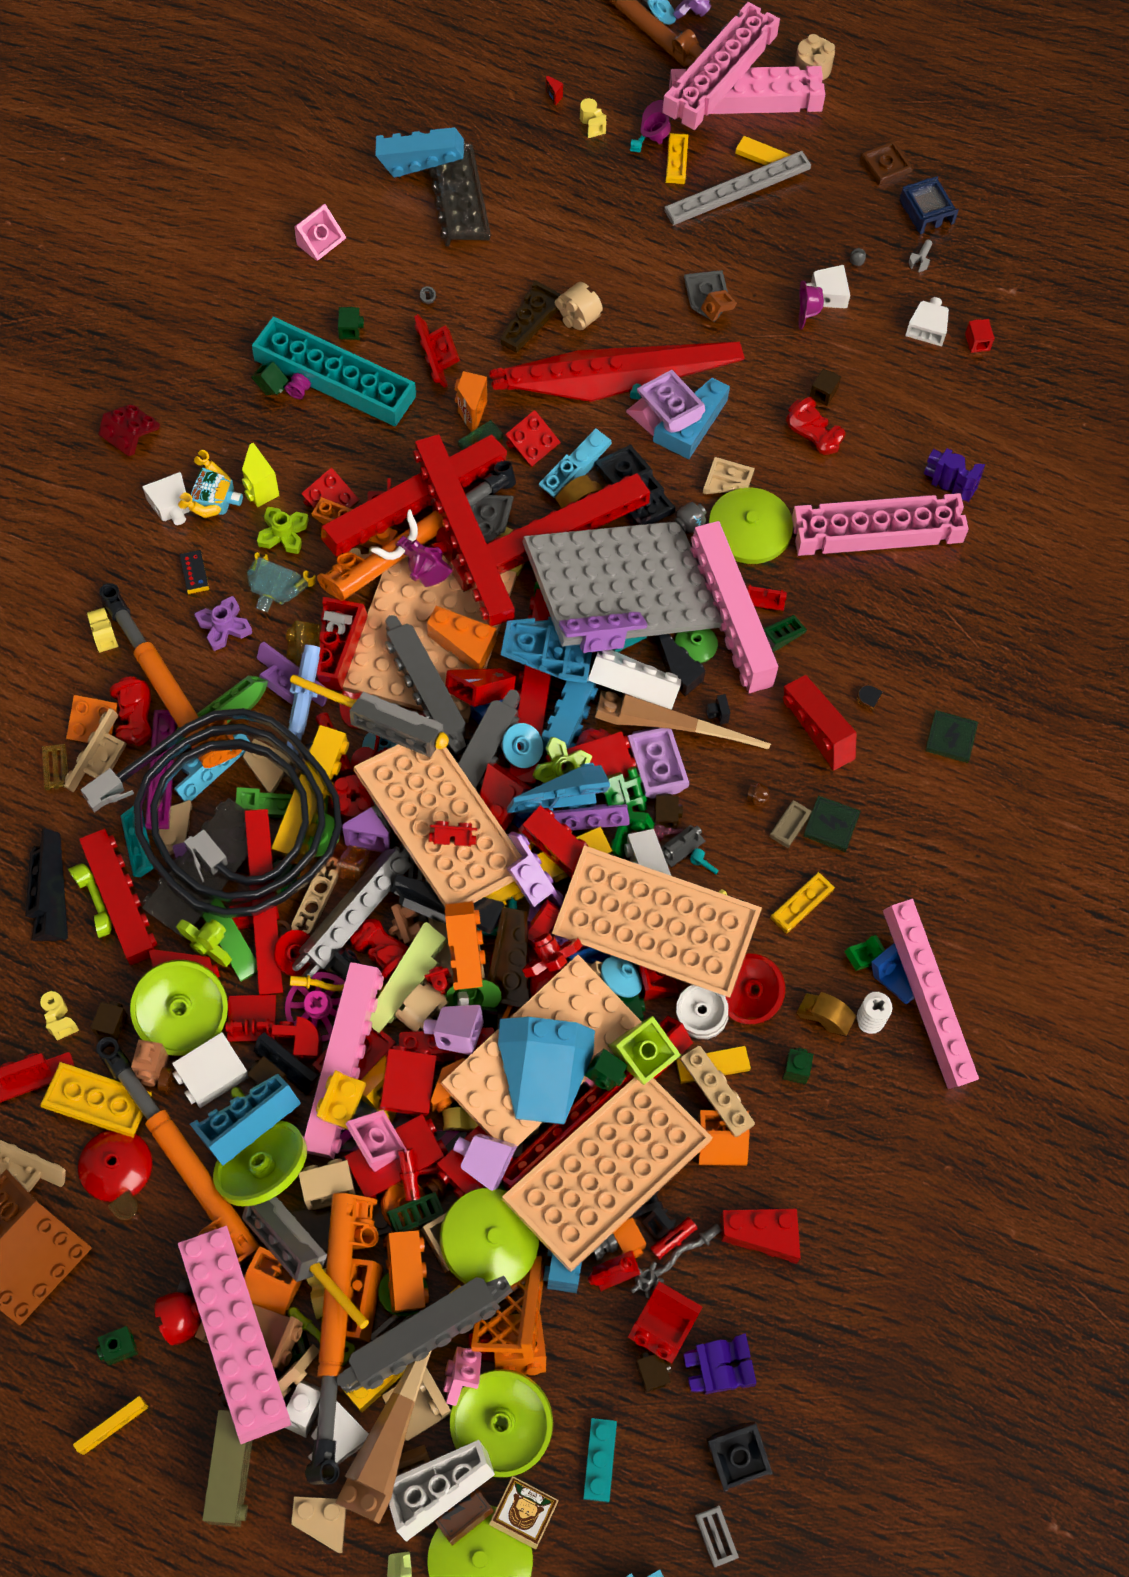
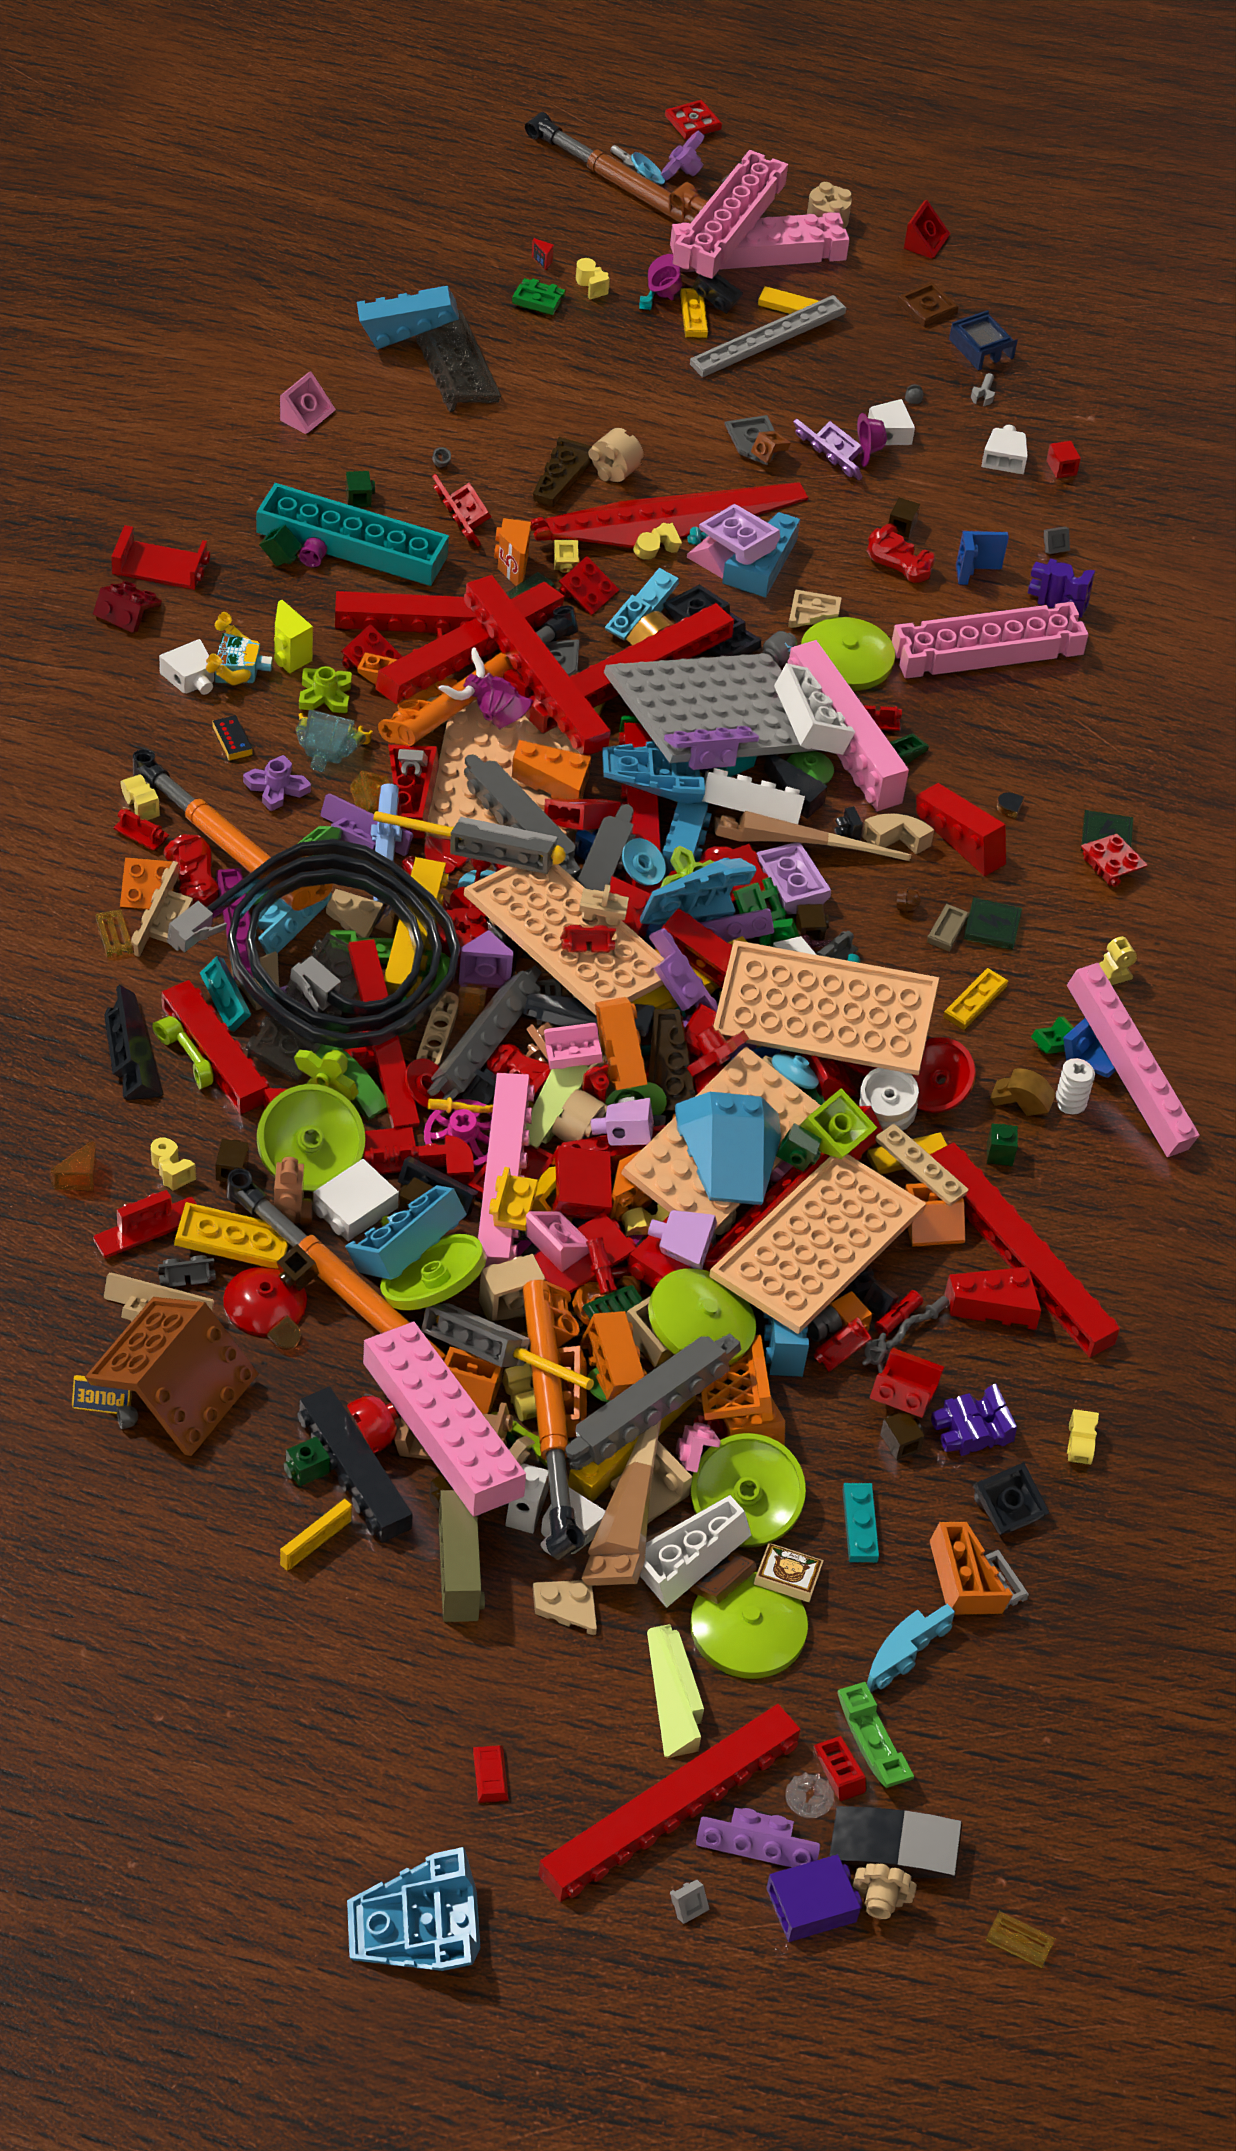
camera: 10 degrees left, 15 degrees down
(40, 1131) = (175, 1271): none -> dark grey hinge
(96, 662) = (140, 830): none -> red hinge
(140, 1147) = (297, 1268): none -> dark brown brick
(160, 1357) = (355, 1465): none -> black brick
(163, 384) = (158, 562): none -> red panel
(360, 454) = (400, 612): none -> red brick
(421, 943) = (572, 1046): none -> bright pink bracket
(473, 798) = (604, 904): none -> tan hips
(518, 405) = (565, 555): none -> light yellow bracket
(543, 133) = (538, 296): none -> green plate
(592, 399) = (649, 543): none -> light yellow leg
(682, 1532) = (964, 1572): none -> orange wedge
(700, 597) = (811, 711): none -> white wedge
(701, 140) = (717, 291): none -> black bracket
(751, 717) = (889, 828): none -> tan brick
(778, 305) = (835, 444): none -> medium lavender bracket
(799, 1184) = (1021, 1247): none -> red brick
(817, 1393) = (1082, 1436): none -> light yellow leg
(885, 430) = (980, 551): none -> blue bracket
(896, 88) = (925, 232): none -> red slope
(937, 879) = (1117, 961): none -> light yellow leg
(952, 764) = (1112, 858): none -> red hinge
(959, 421) = (1056, 540): none -> dark grey tile

